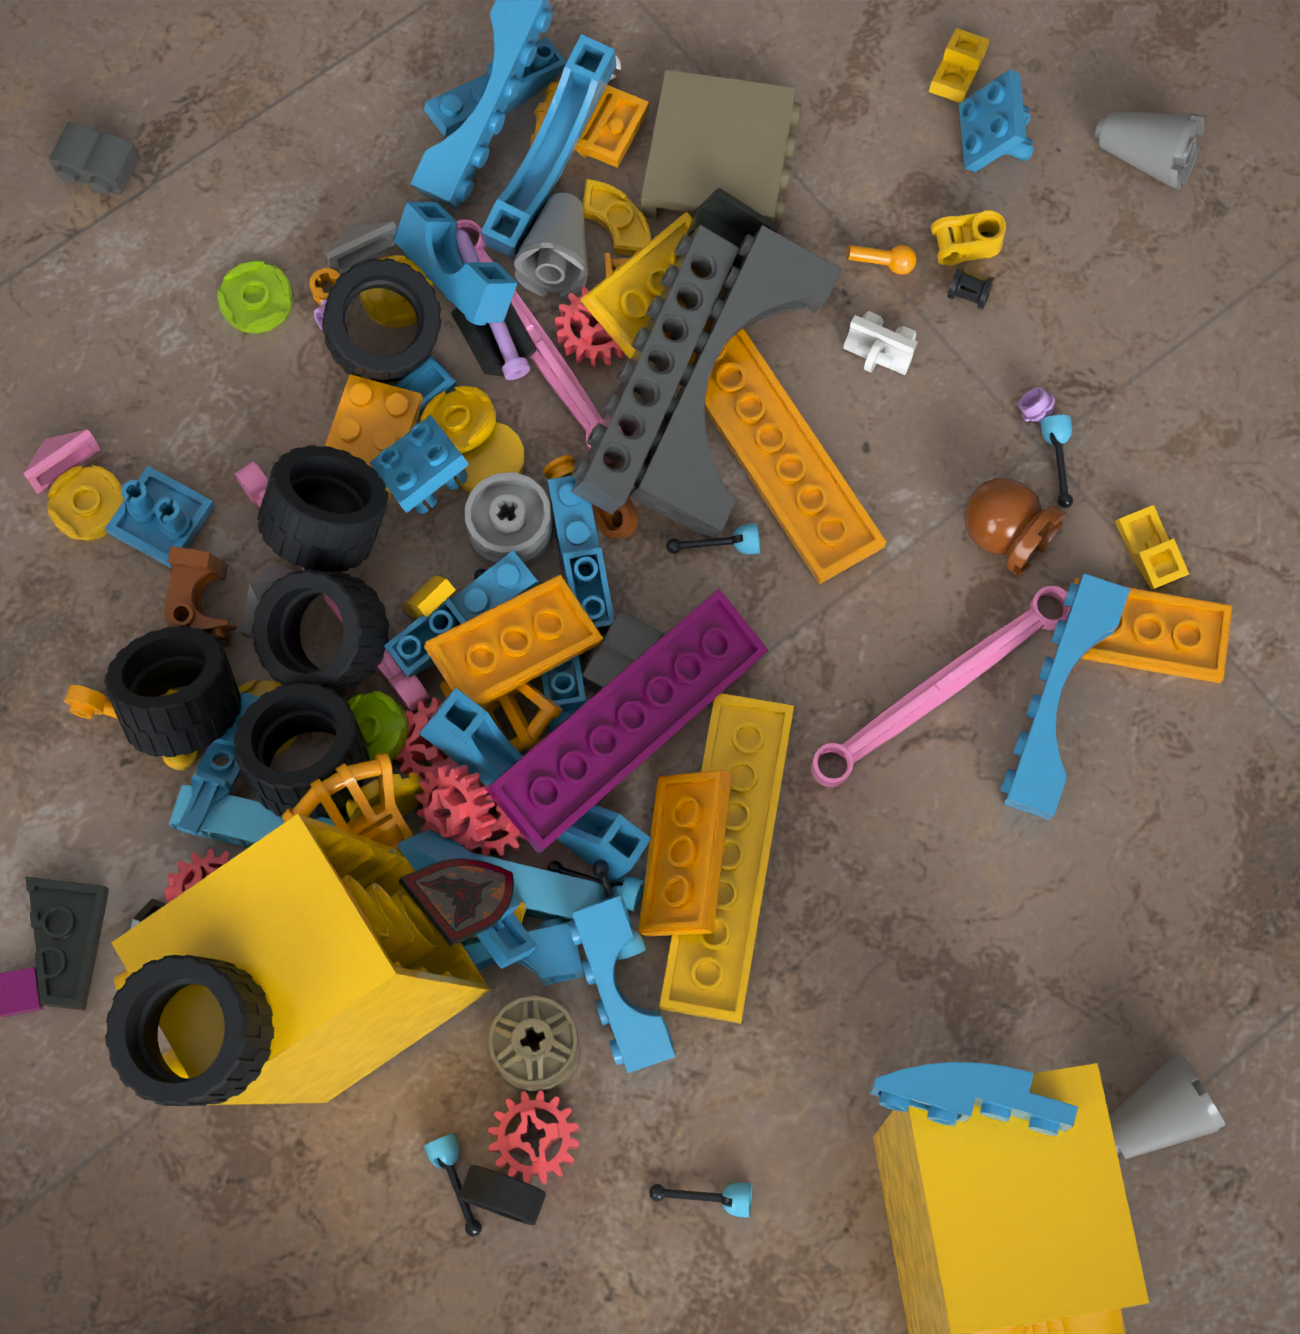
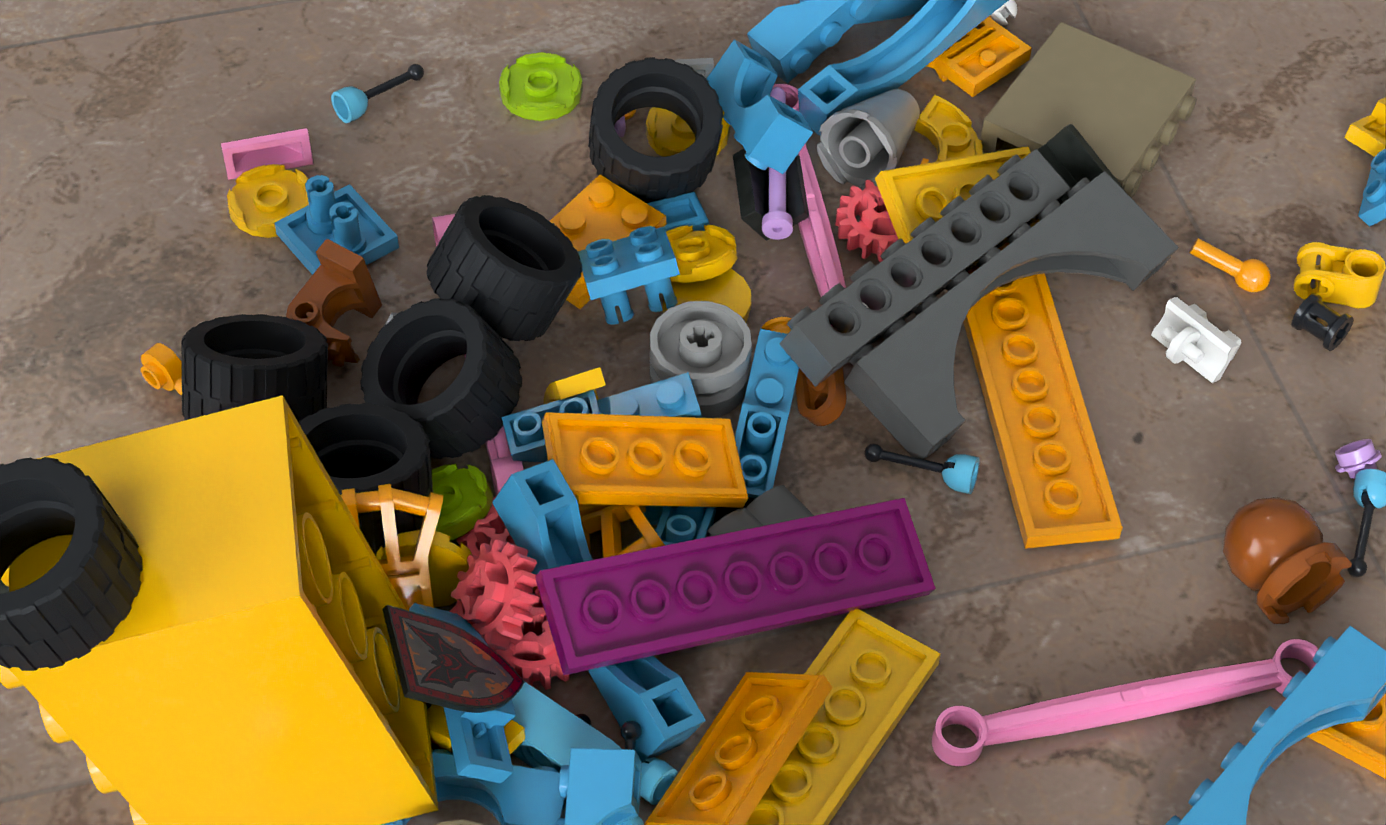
camera: 20 degrees right, 20 degrees down
(106, 379) = (352, 102): none -> medium azure hinge

